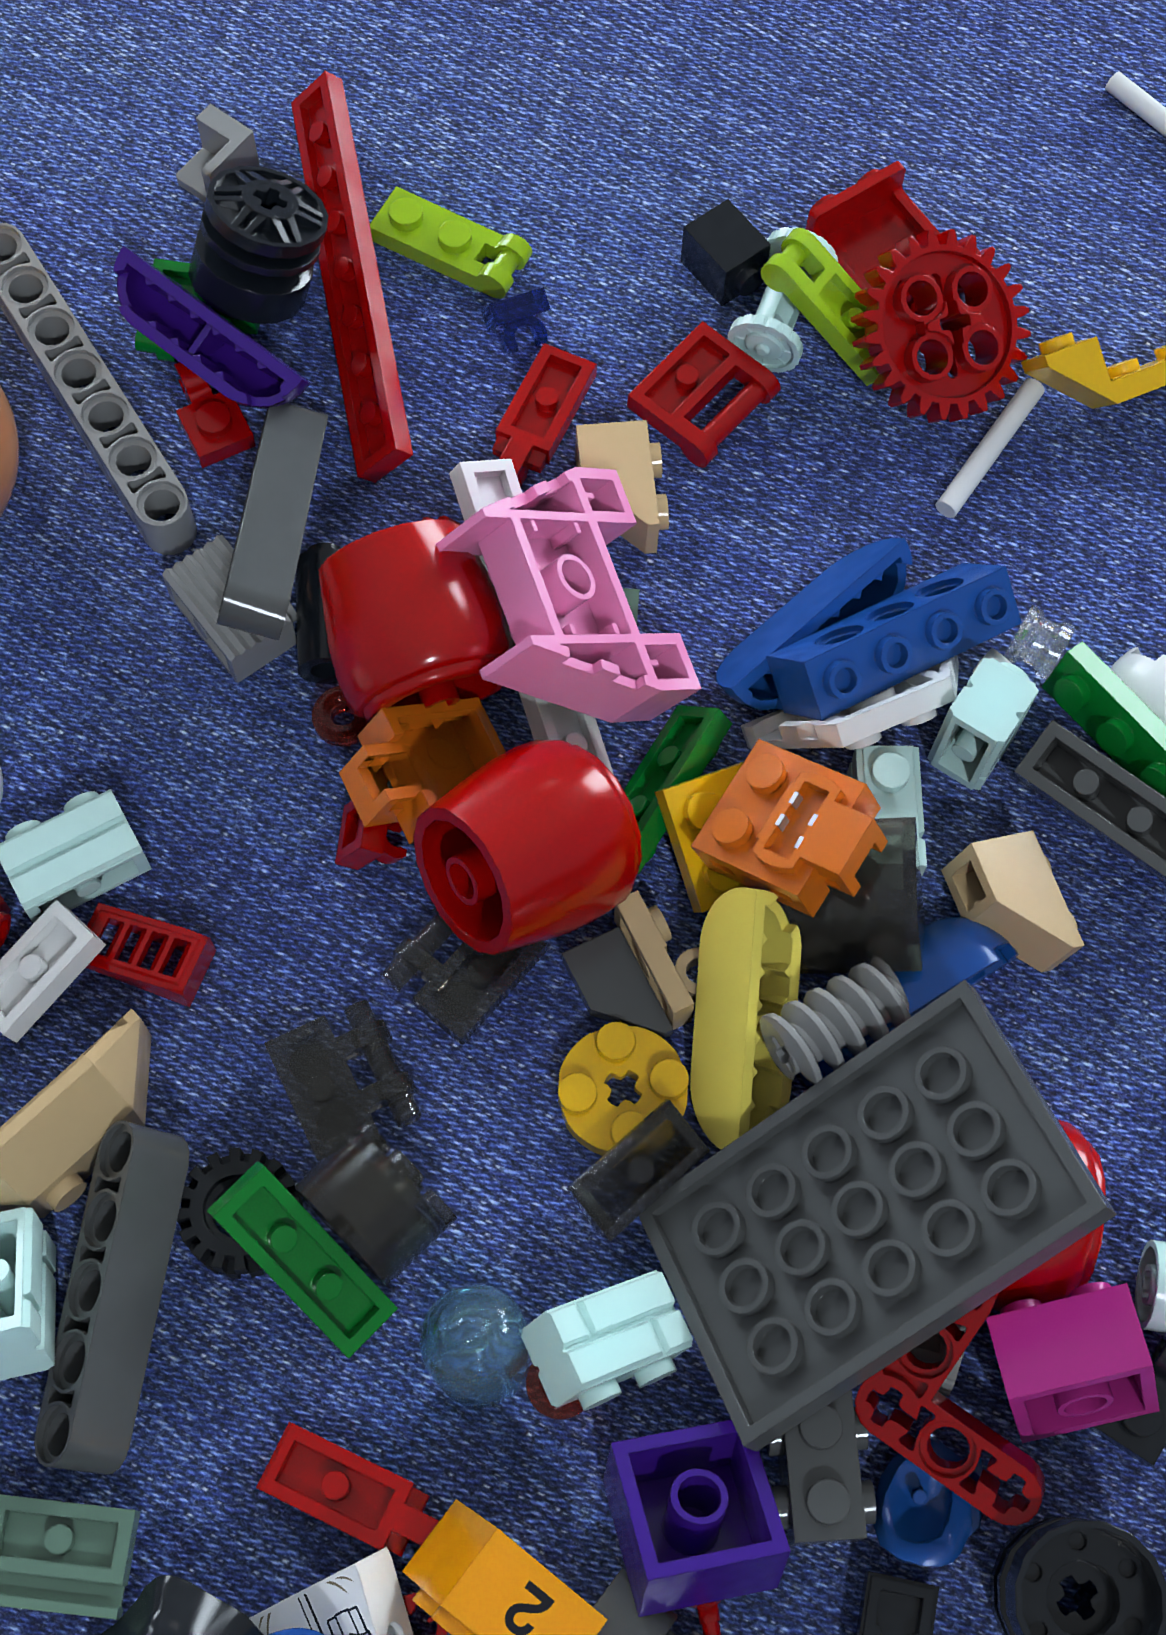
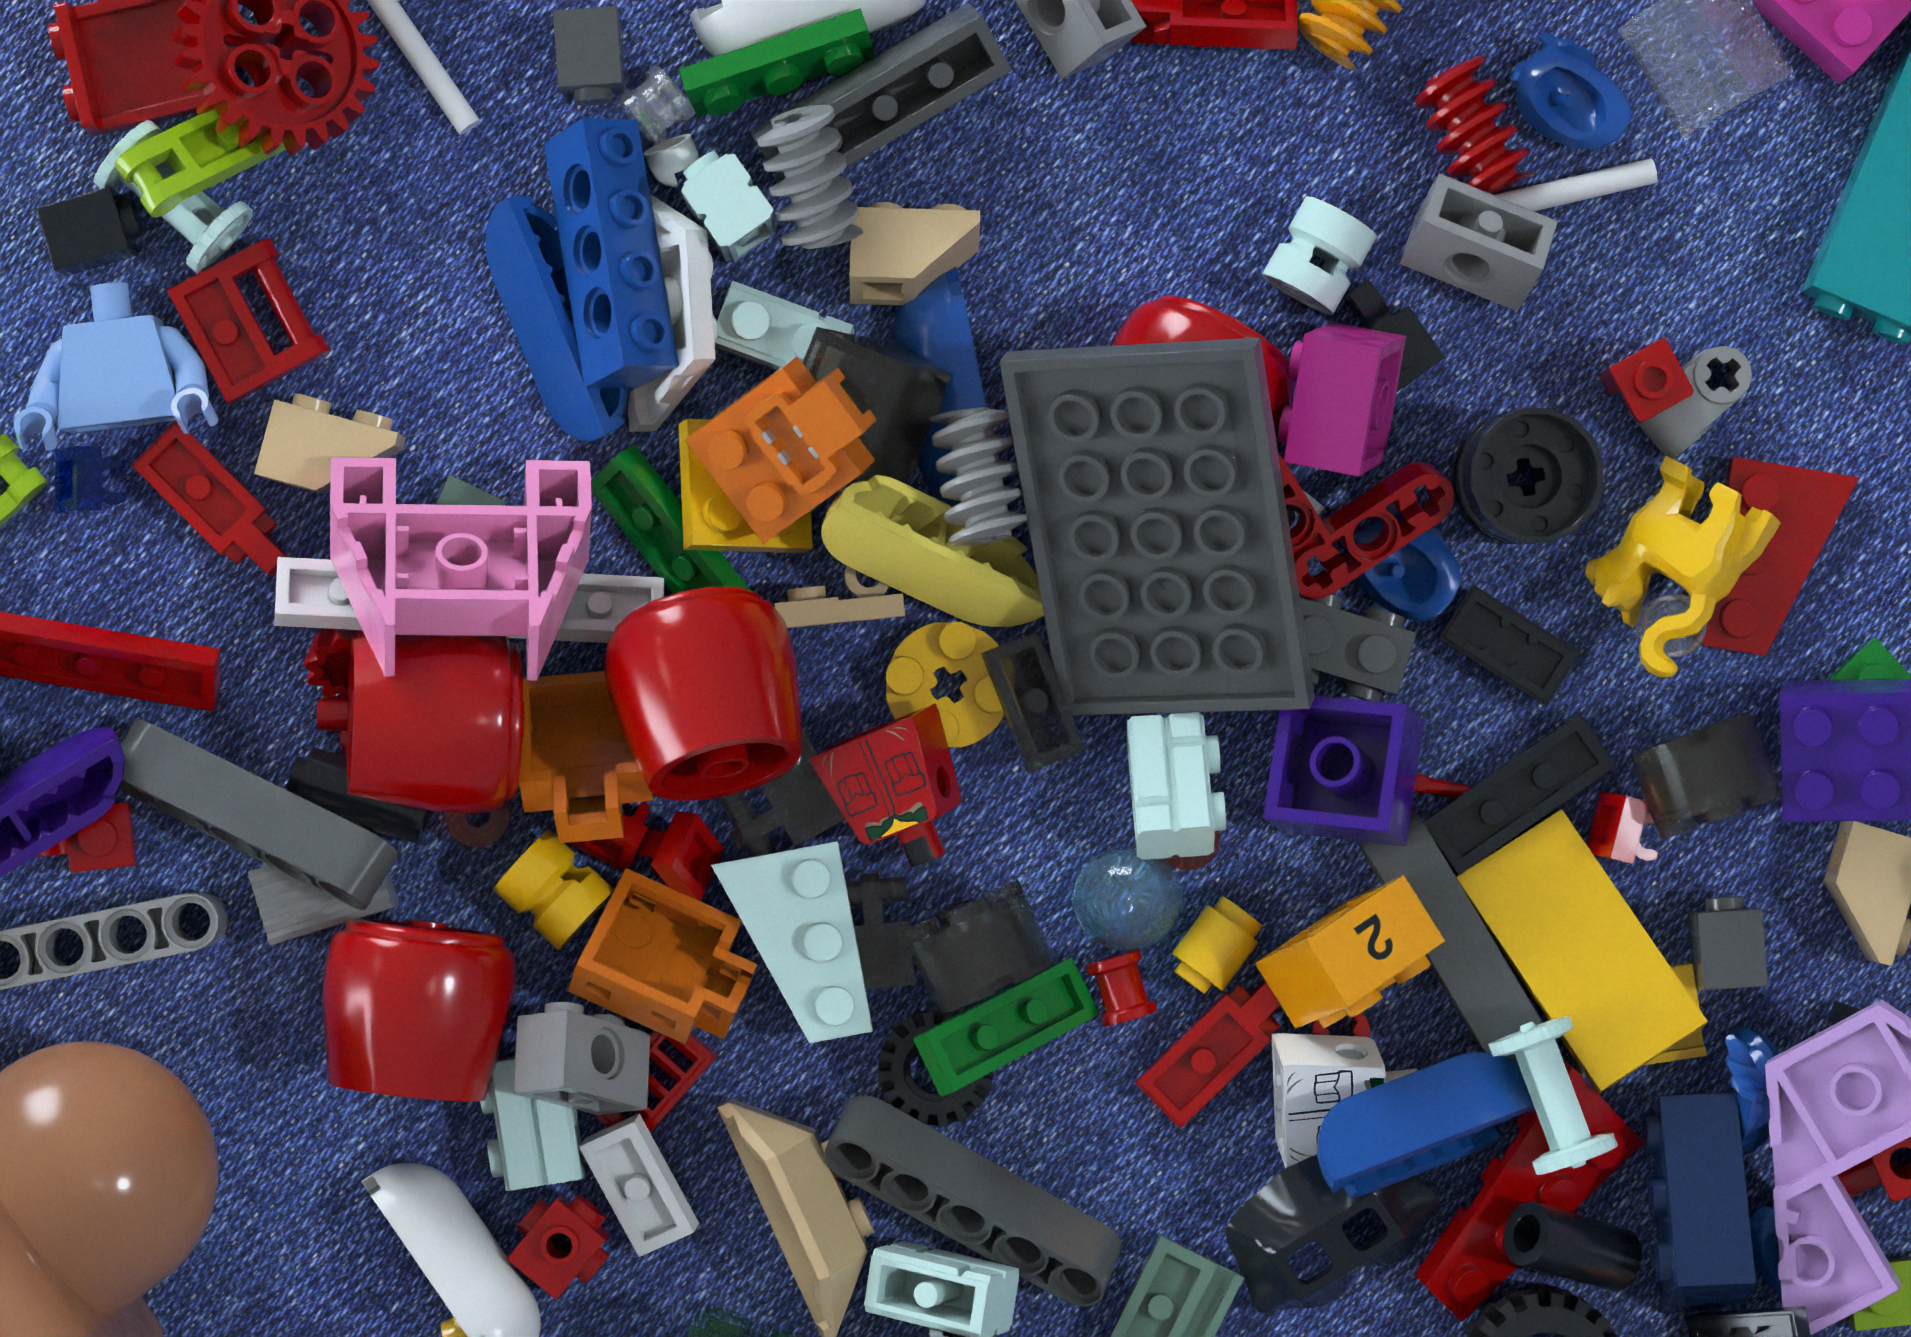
camera: 65 degrees left, 20 degrees up
(118, 836) = (582, 1060): none -> light grey brick
(139, 706) = (416, 1008): none -> red piece
(259, 911) = (664, 961): none -> orange piece
(292, 803) = (553, 889): none -> yellow wheel
(329, 1034) = (805, 933): none -> light aqua wing
(368, 900) = (683, 854): none -> red tile
(383, 1370) = (1121, 988): none -> red bush
(460, 1454) = (1216, 946): none -> yellow brick
(510, 1065) = (894, 782): none -> red torso
(612, 302) = (115, 375): none -> light blue torso
(614, 983) = (845, 653): dark grey tile -> none
(1045, 765) = (811, 178): none -> light grey piece
(1059, 573) = (589, 54): none -> dark grey brick

